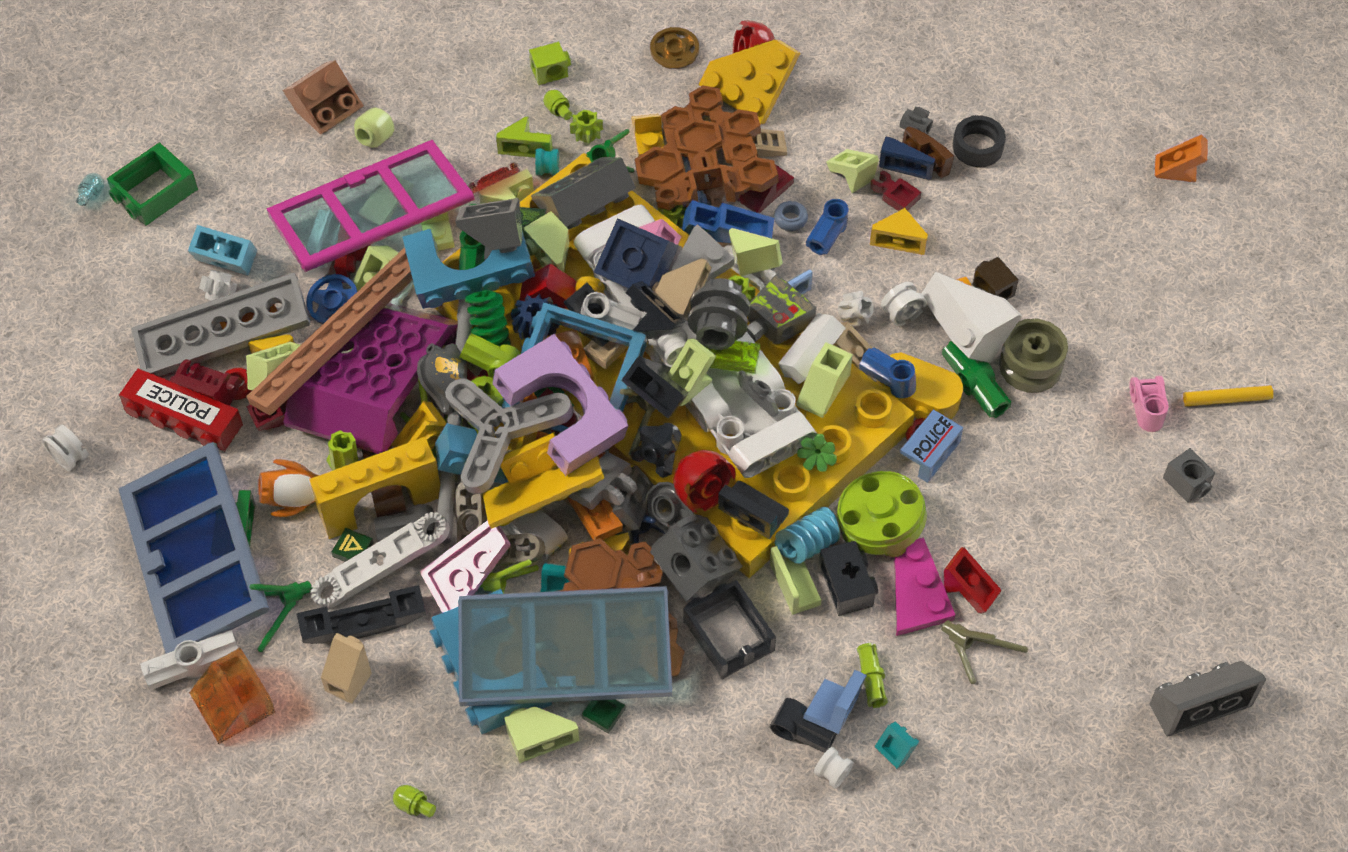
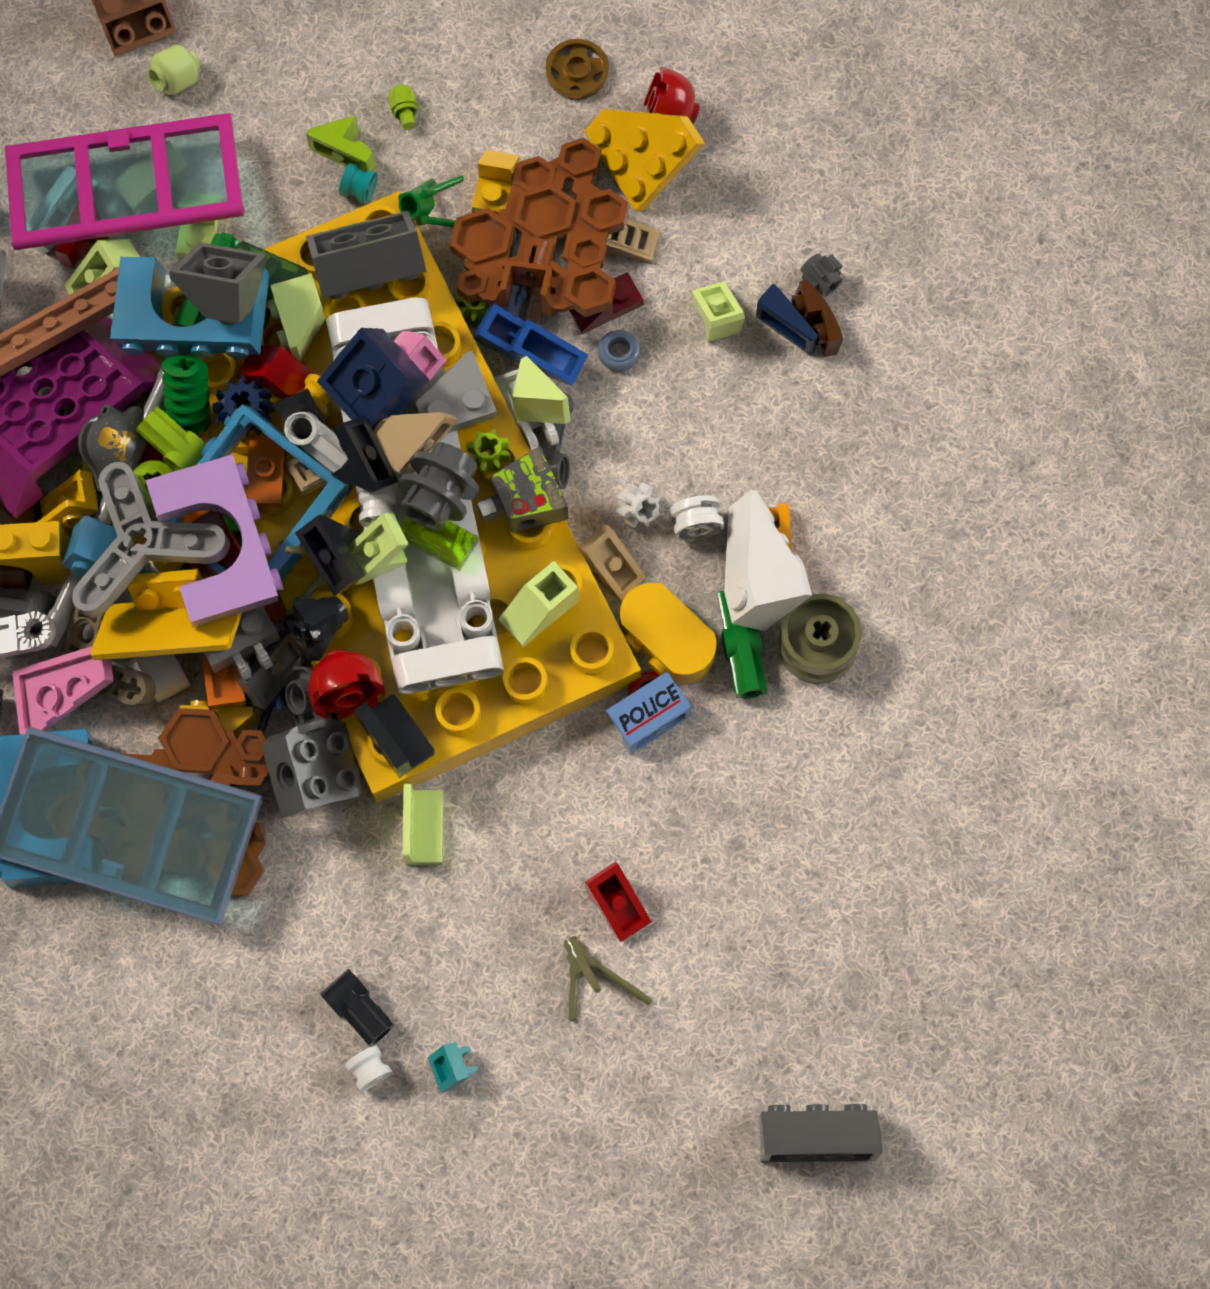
camera: 20 degrees right, 15 degrees up
(331, 298) = (41, 287): blue wheel -> none
(494, 177) = (283, 190): clear red tile -> none
(498, 580) = (94, 712): lime plant -> none
(516, 186) = (285, 213): yellowish green slope -> none
(538, 732) = (61, 910): yellowish green slope -> none
(549, 63) = (414, 45): lime brick -> none
(552, 578) = (149, 730): teal tile -> none
(586, 126) = (427, 157): lime gear -> none
(603, 713) = (147, 916): dark green tile -> none
(729, 628) = (322, 861): window -> none
(758, 392) = (451, 598): dark grey piece -> none
(802, 282) = (584, 447): light blue slope -> none
(806, 348) = (555, 543): white piece -> none
(808, 535) = (455, 781): medium azure piece -> none
(817, 453) = (494, 691): bright green plant -> none
(828, 227) = (652, 385): blue piece -> none
(834, 702) = (399, 994): medium blue panel -> none
(847, 577) = (474, 825): black brick -> none
(874, 675) = (459, 973): lime pin -> none
(881, 508) = (551, 781): lime piece -> none
(895, 374) = (630, 608): blue piece -> none
(896, 194) = (759, 364): dark red plate -> none
(899, 233) = (735, 418): yellow slope -> none
(919, 591) = (557, 891): dark pink wing -> none
(979, 125) = (889, 298): black tyre -> none
(995, 278) = (820, 522): dark brown brick -> none
(1149, 402) = (934, 738): bright pink piece -> none
(1182, 160) = (1125, 433): orange slope -> none
(1189, 465) = (939, 841): dark grey brick -> none
(1229, 395) = (1033, 766): yellow piece -> none

